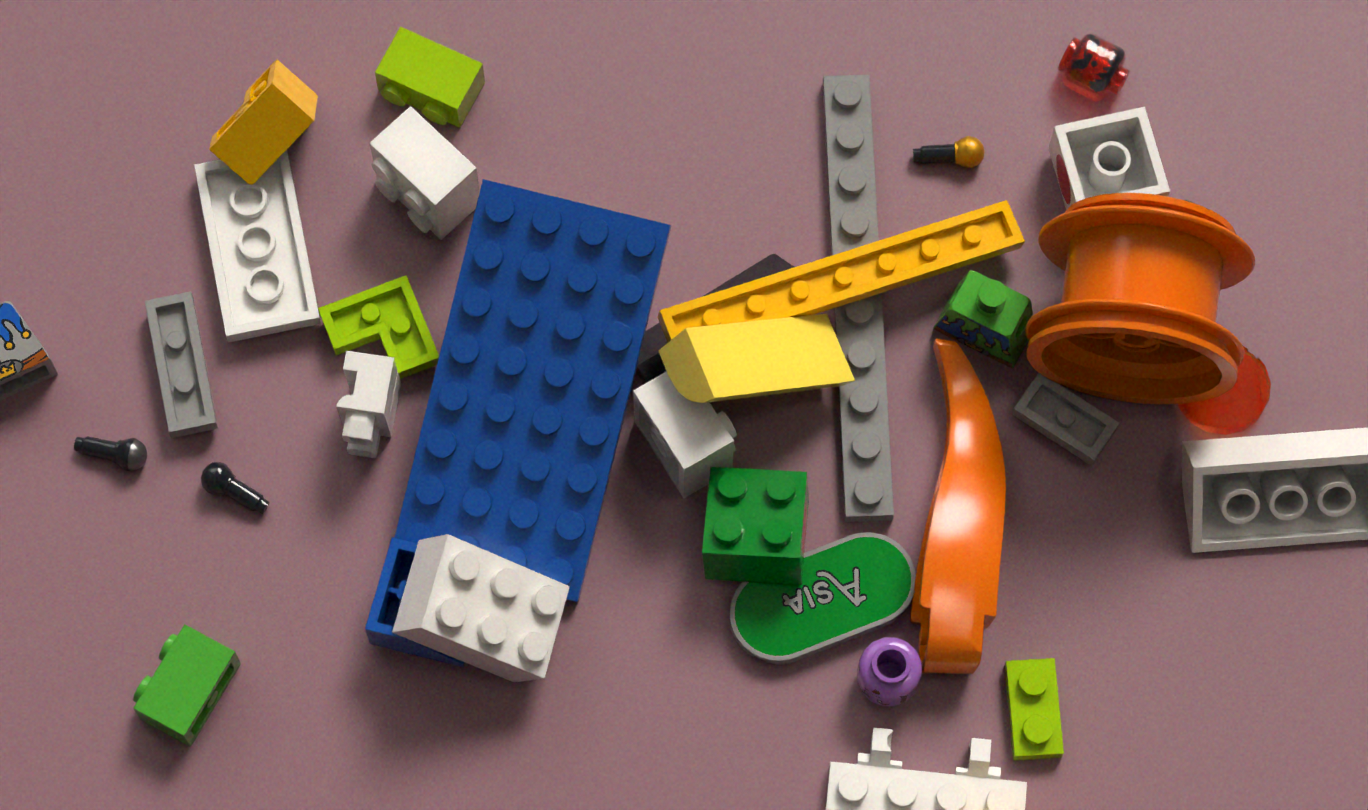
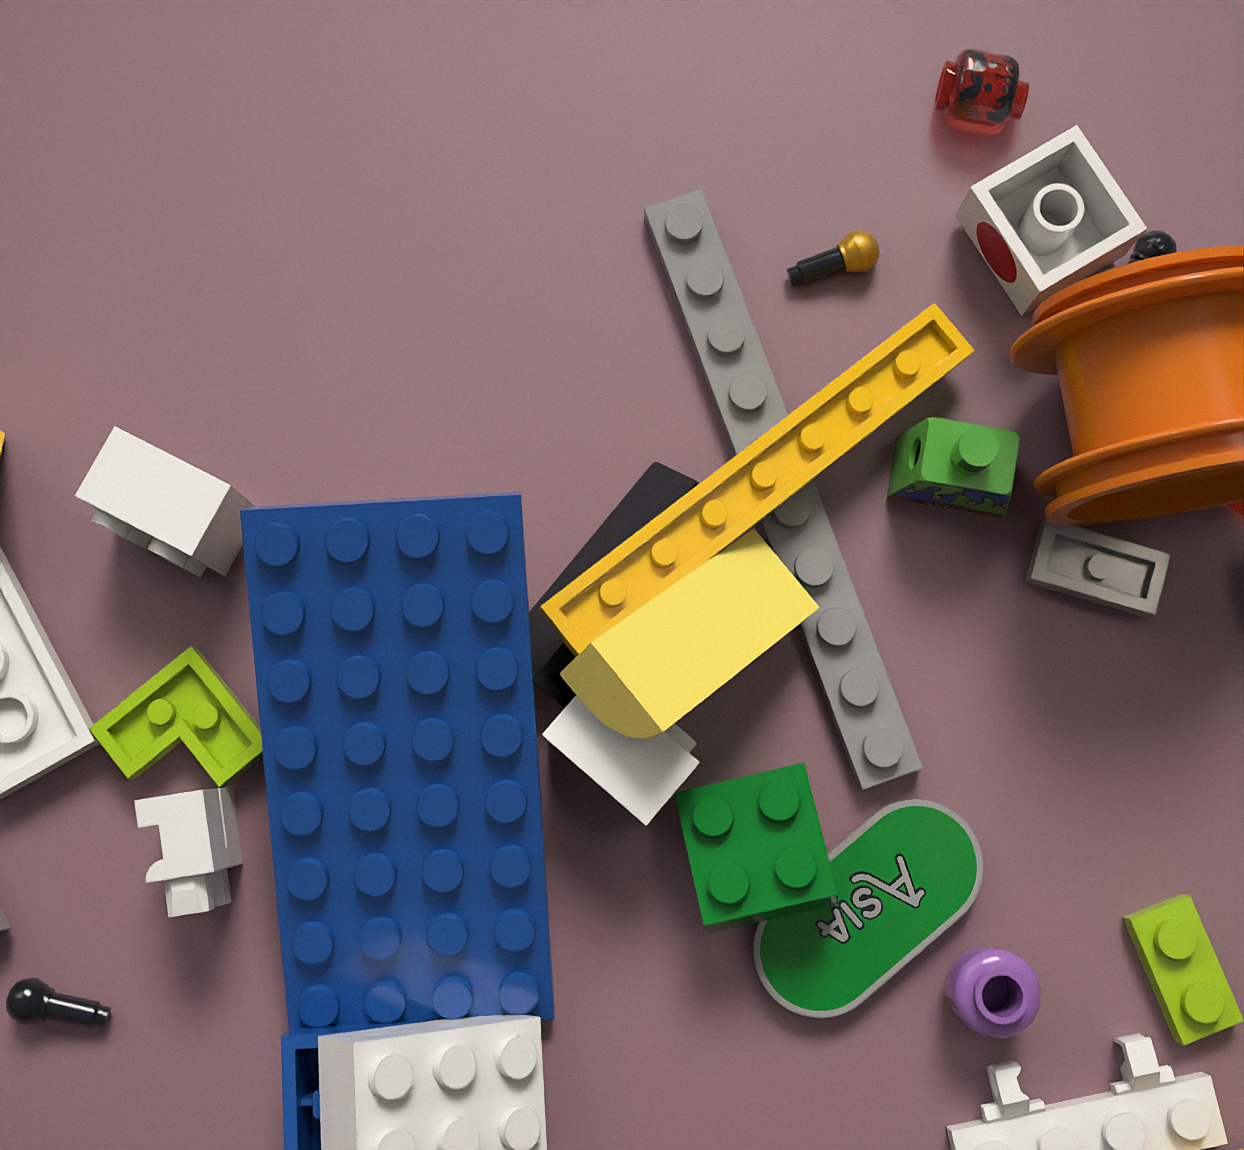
camera: 15 degrees left, 10 degrees up
(429, 78) = (138, 367): lime brick -> none
(963, 527) = (1023, 765): orange animal -> none

